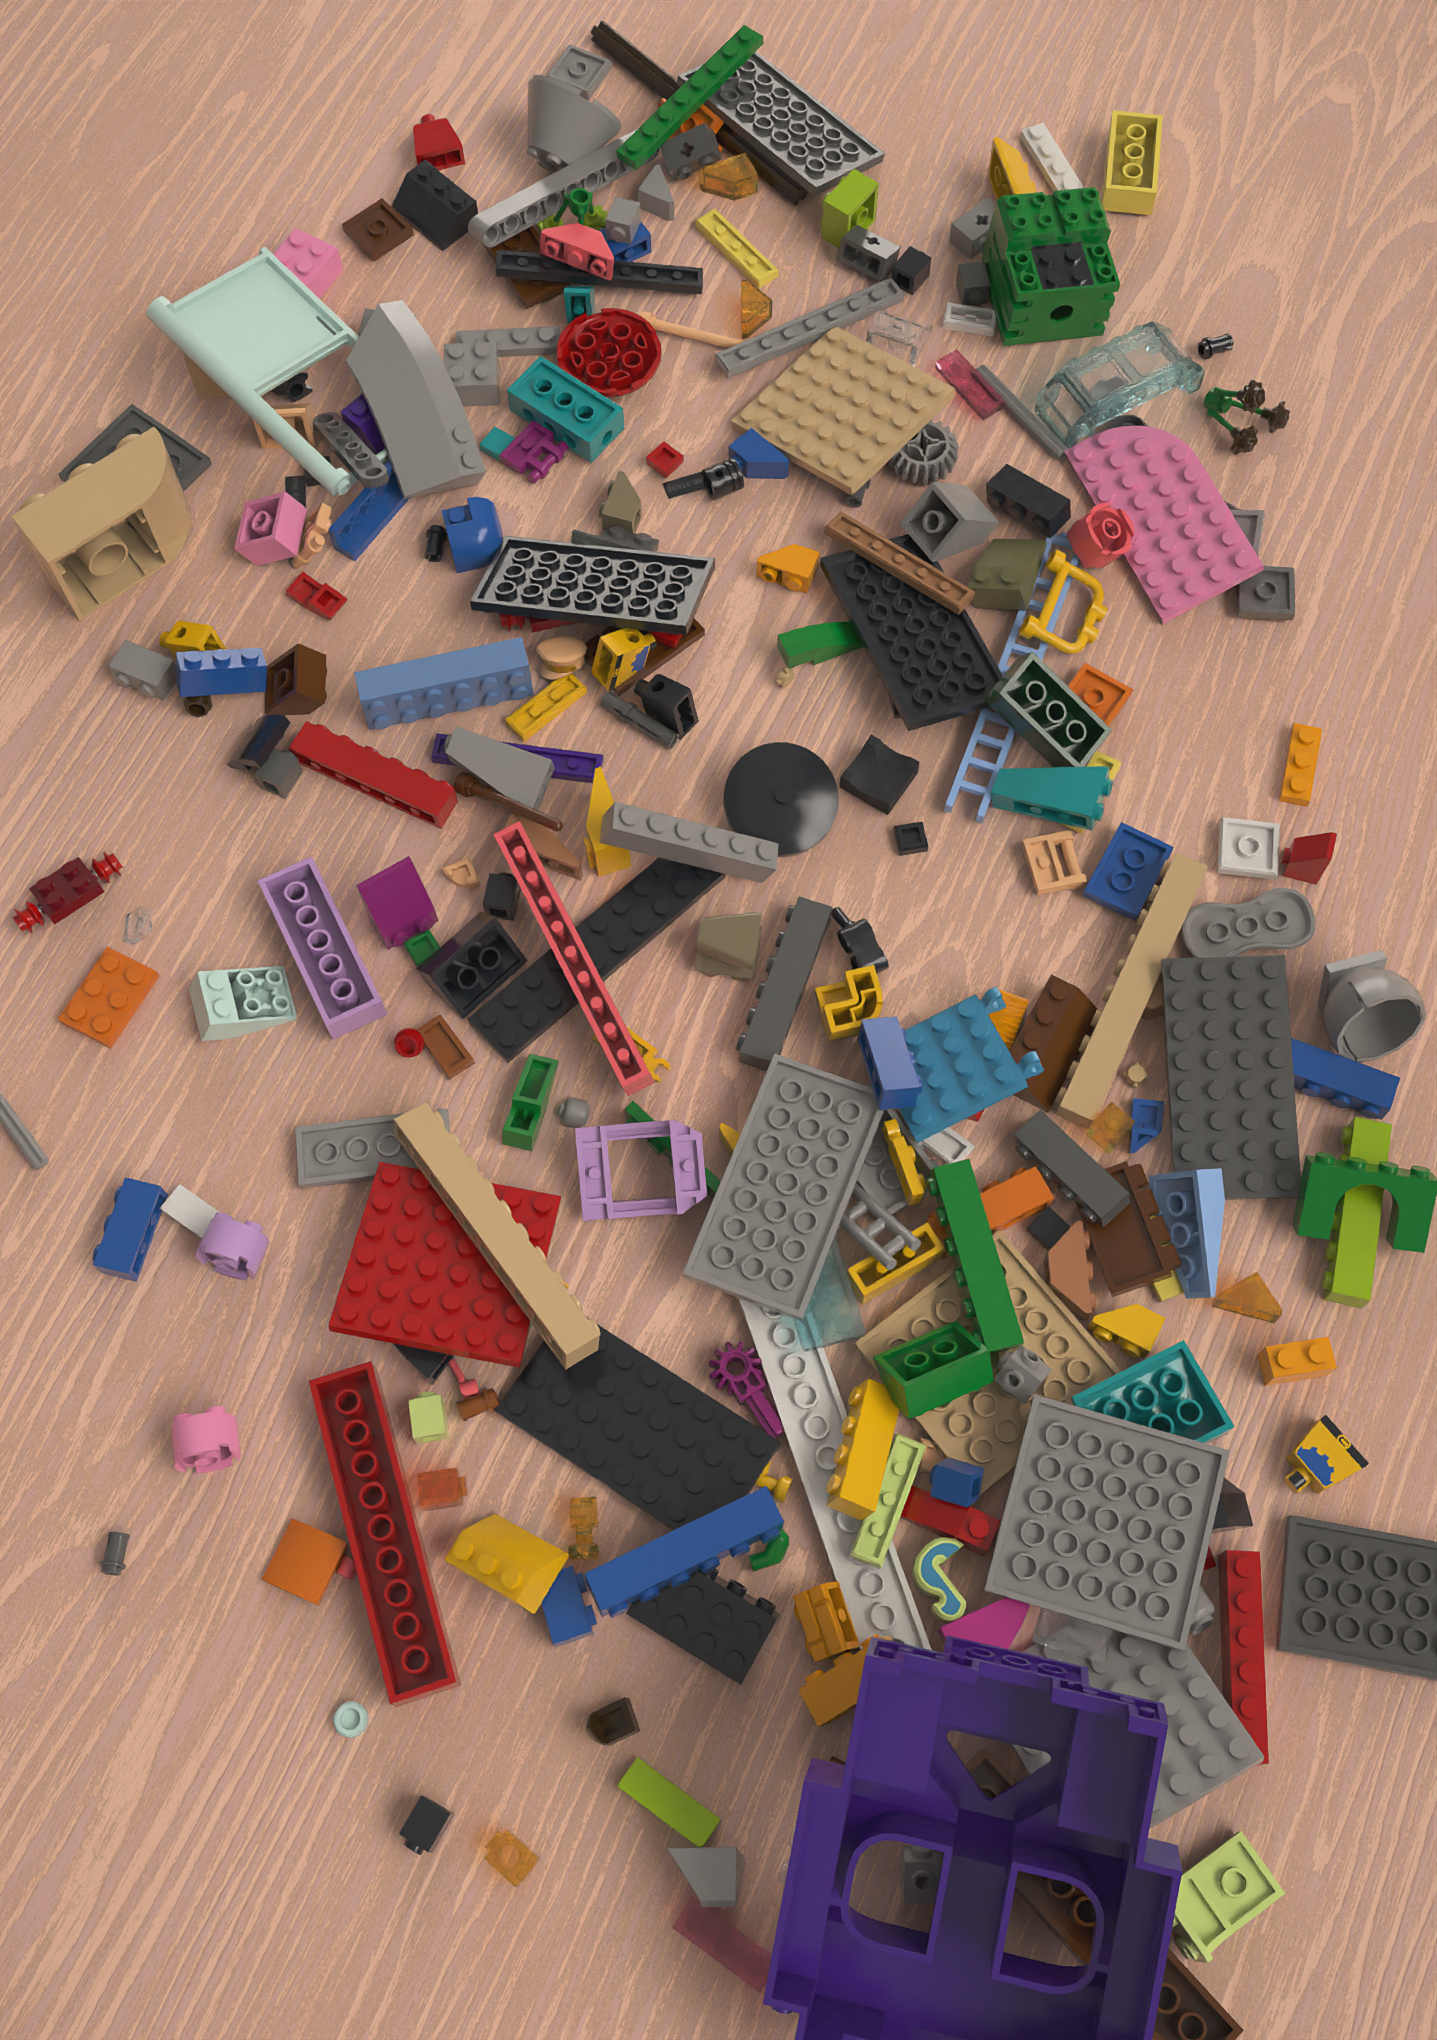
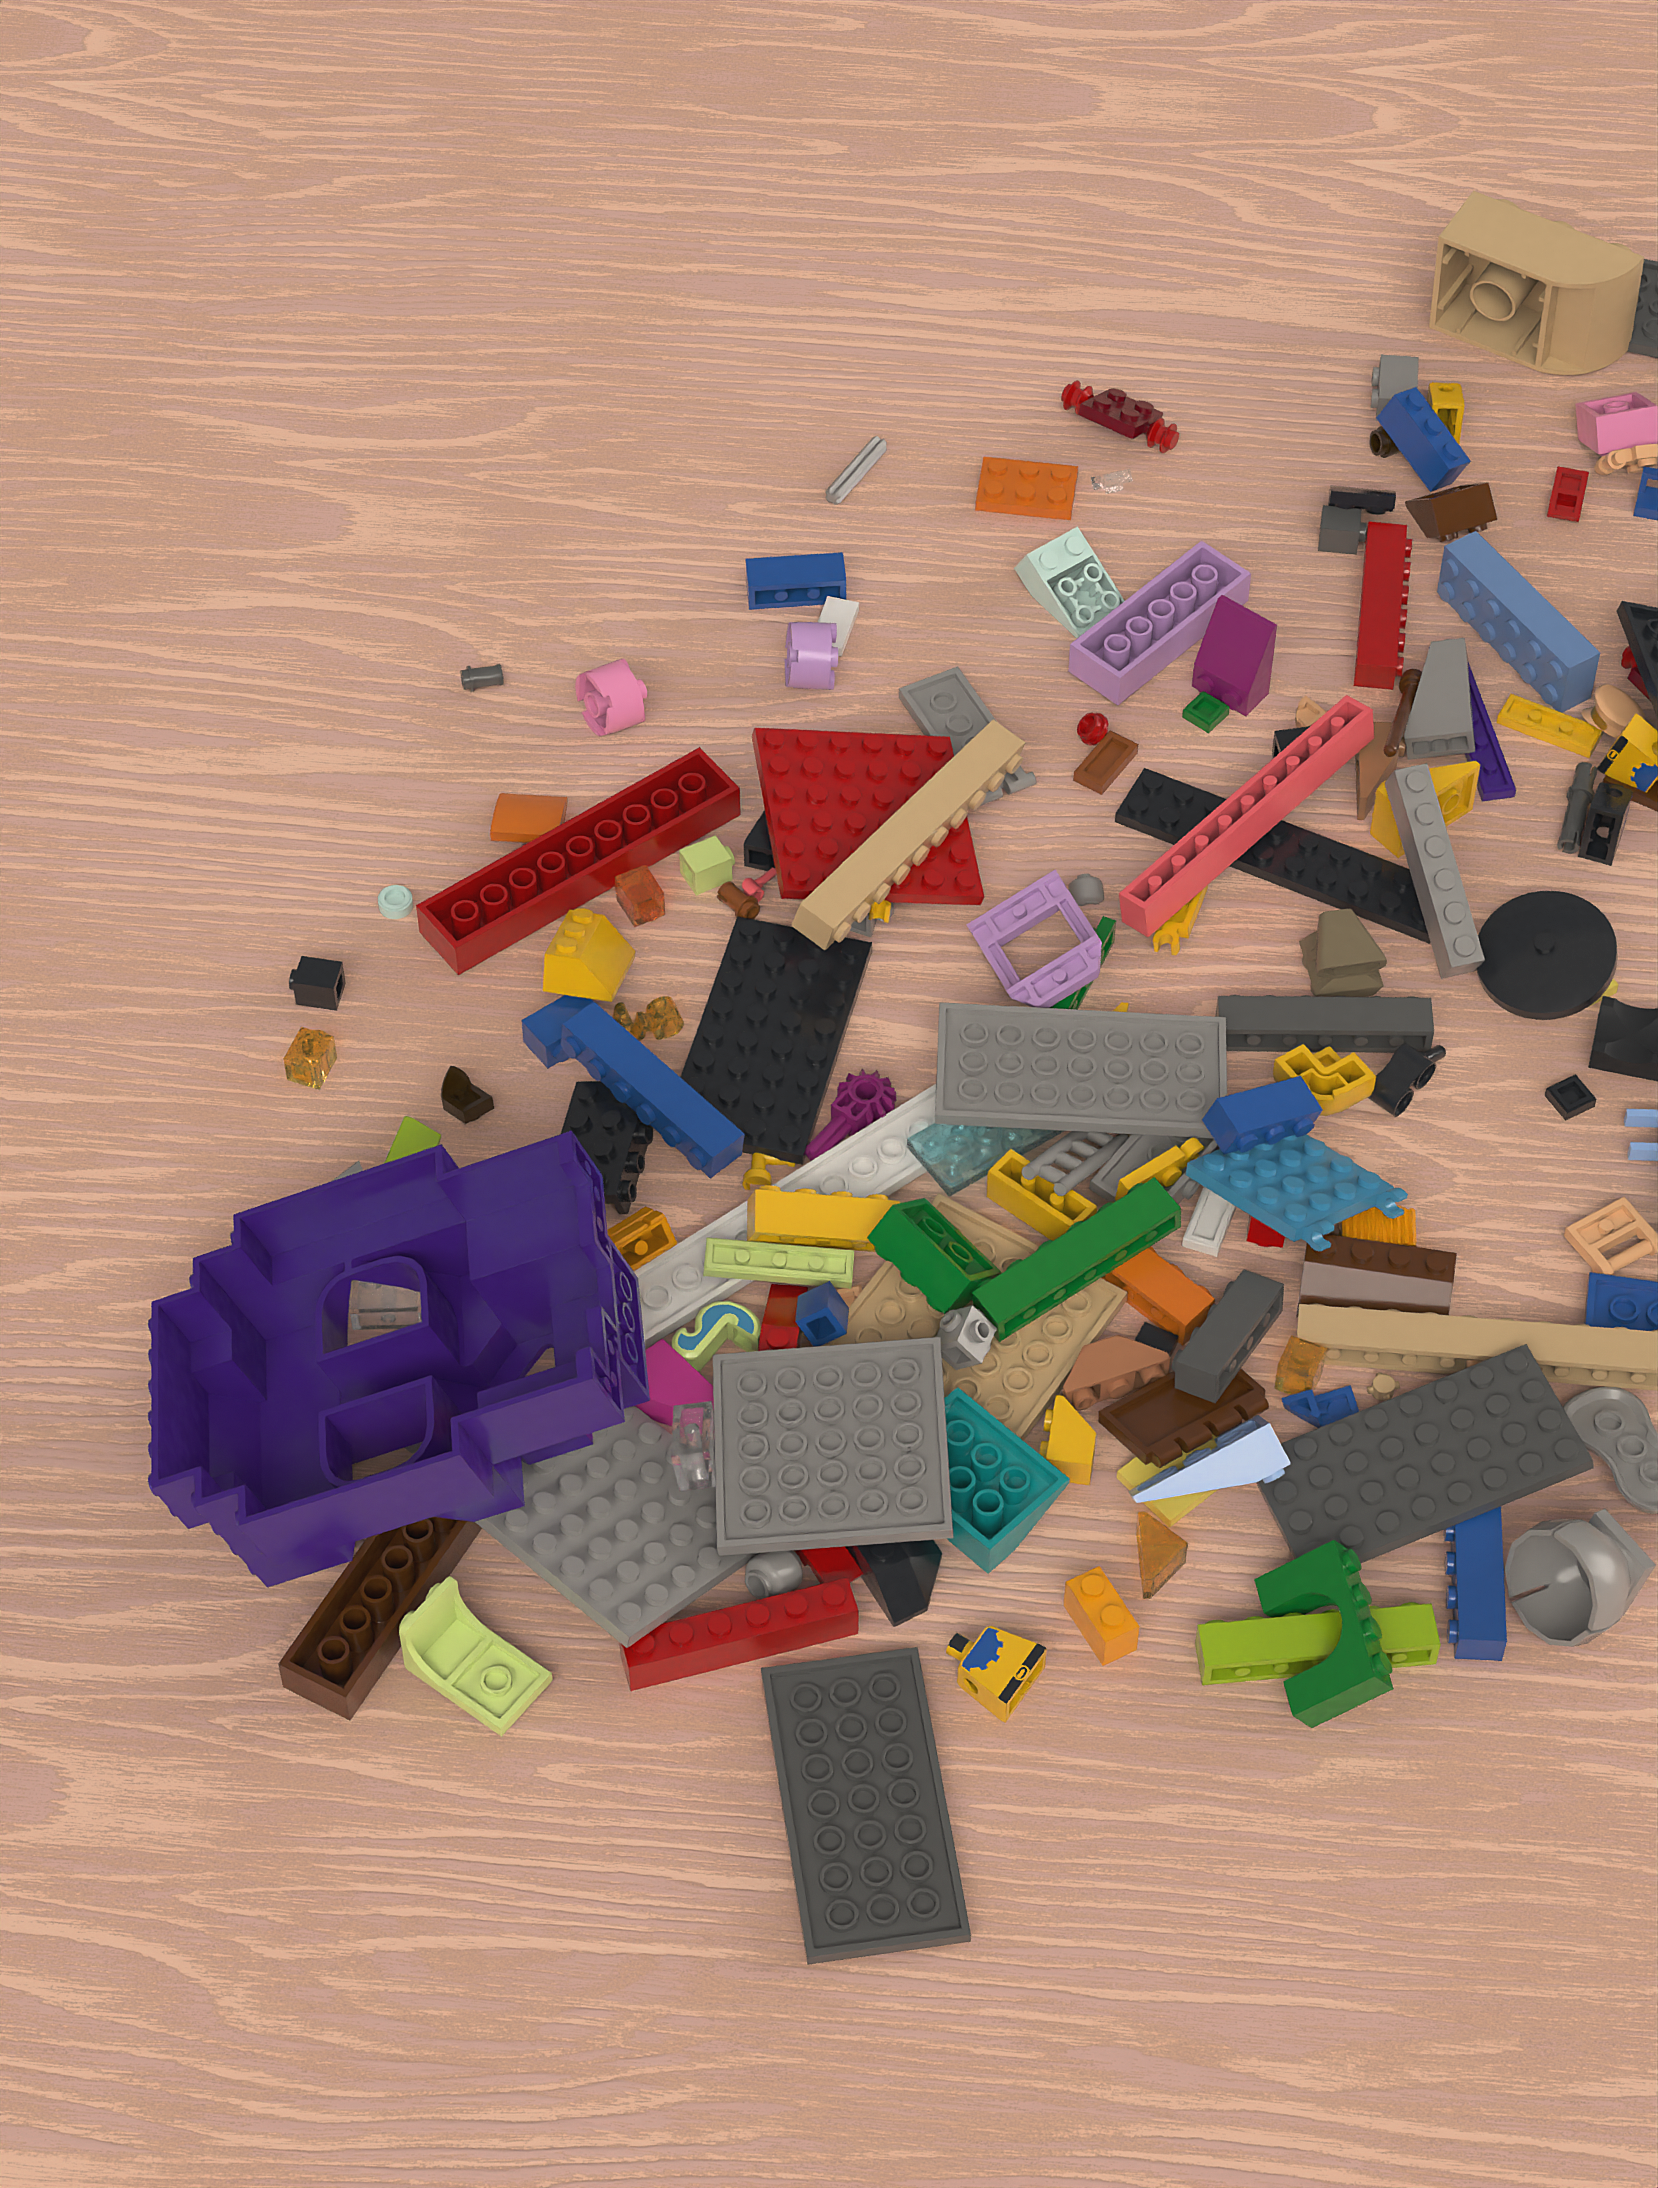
camera: 70 degrees right, 15 degrees down
(472, 964) = (1205, 751): black slope -> none
(529, 1102) = (1076, 845): green slope -> none
(773, 1553) = (687, 1188): green arm -> none

